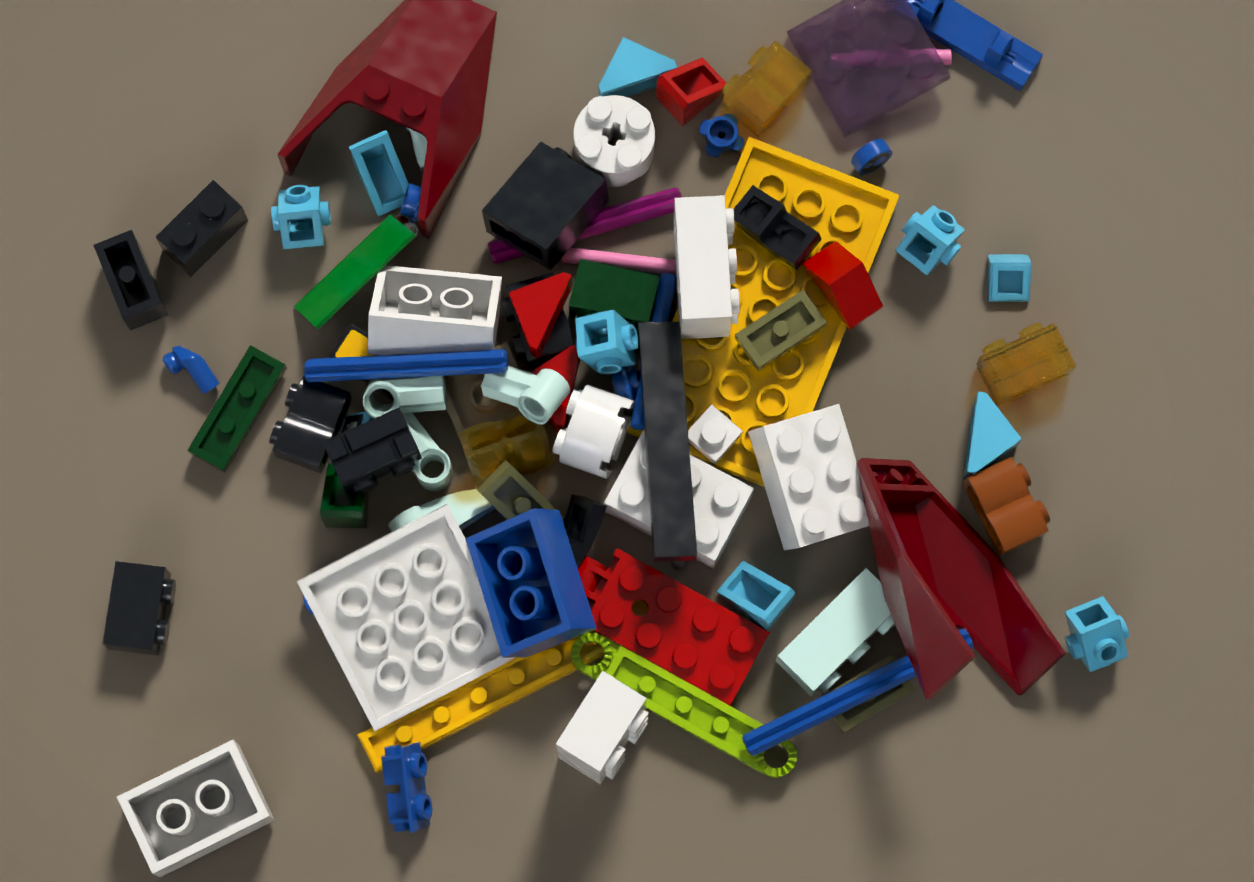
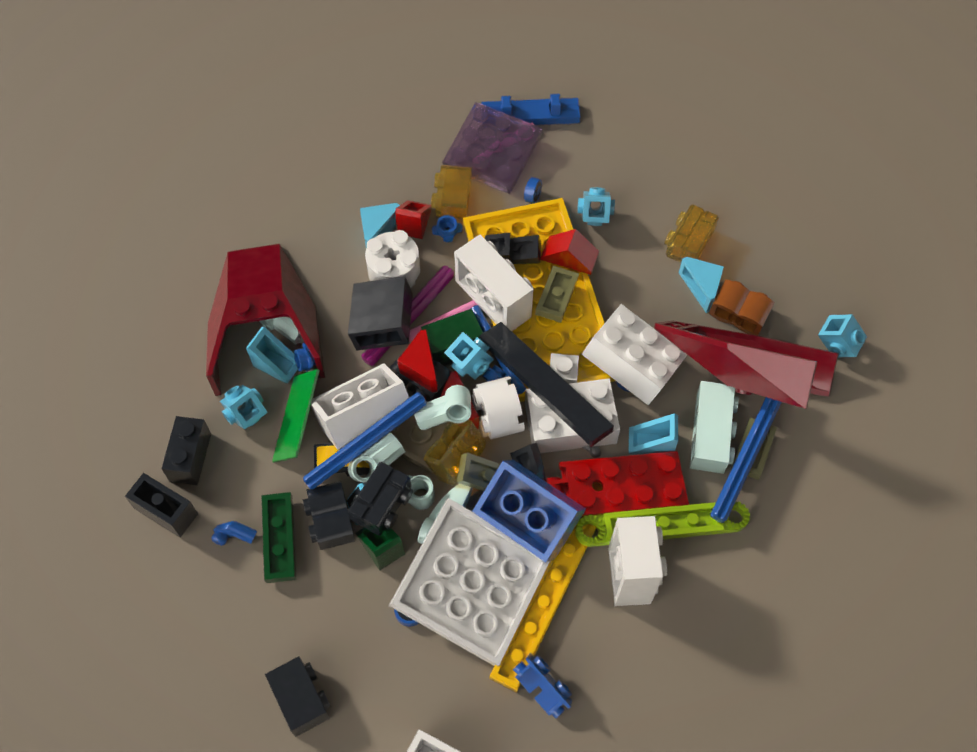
camera: 35 degrees left, 15 degrees down
(1009, 277) = (647, 204): medium azure slope -> none

